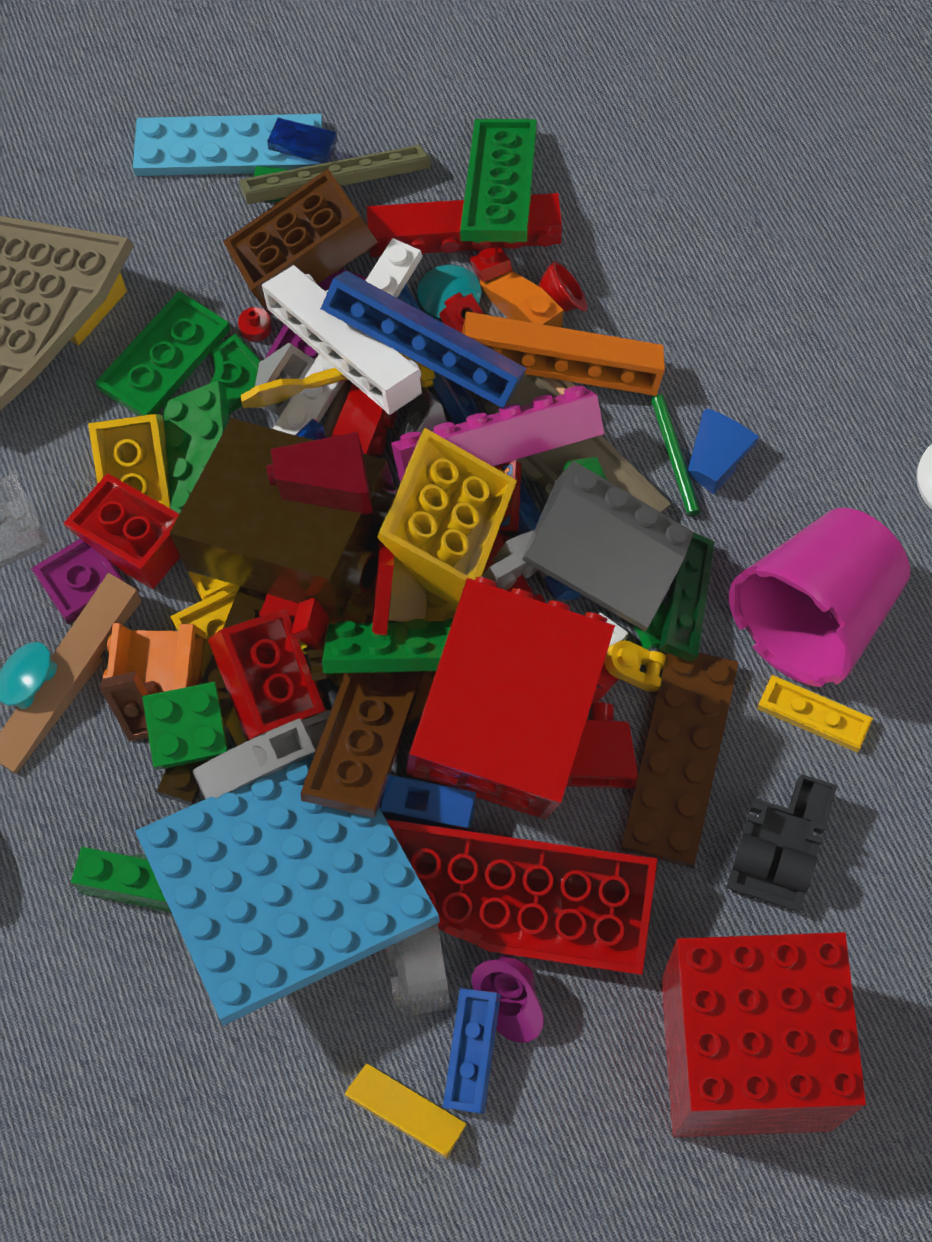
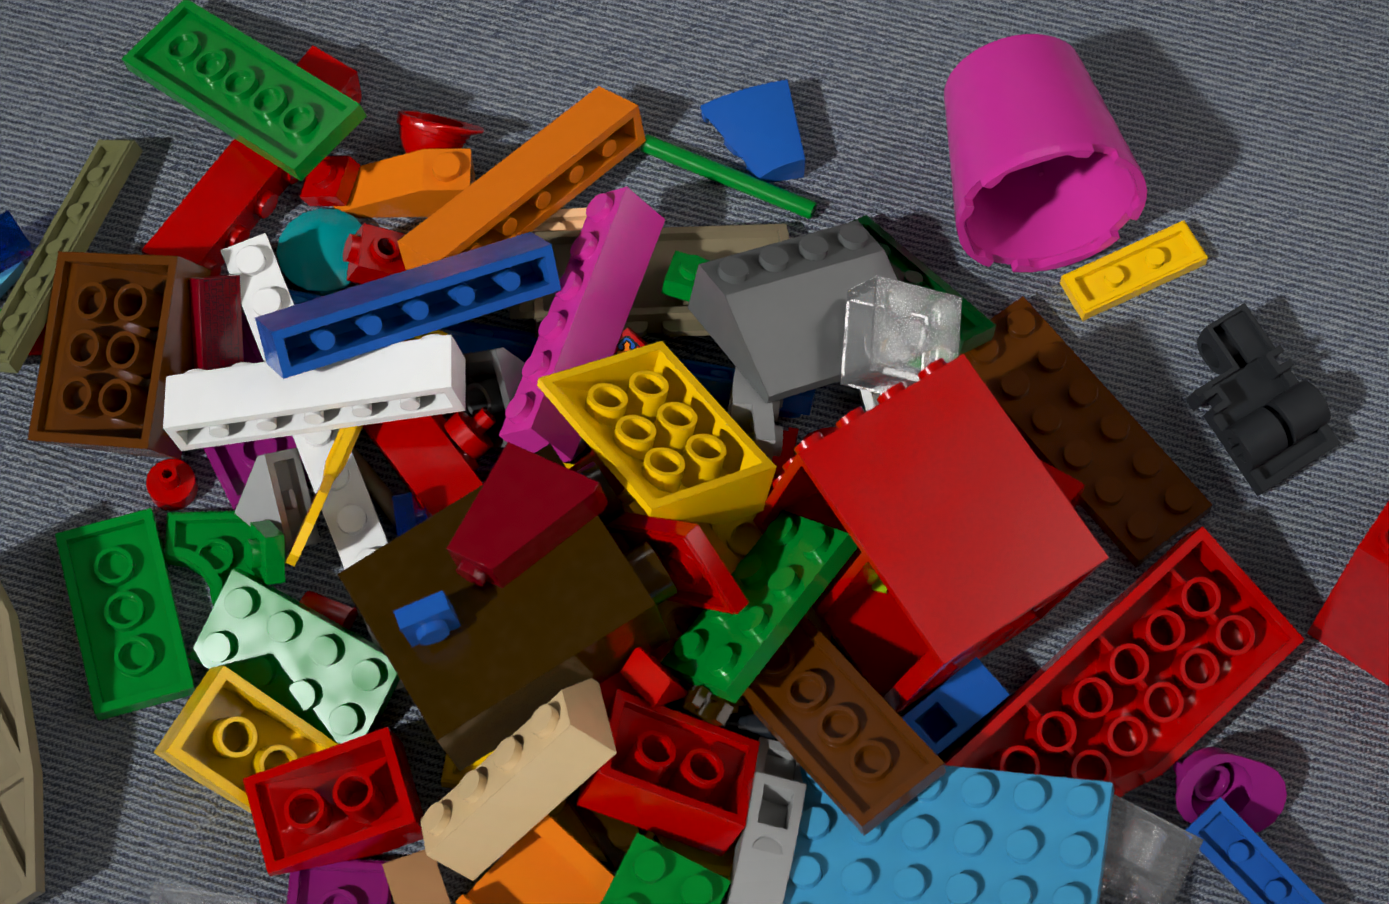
camera: 55 degrees left, 0 degrees up
(197, 598) = (520, 781): none -> tan slope
(229, 474) = (427, 619): none -> blue plate
(239, 386) = (266, 552): none -> green plate
(357, 258) = (216, 321): none -> dark red tile
(388, 430) = (471, 432): none -> red tile
(631, 600) = (896, 333): none -> clear brick

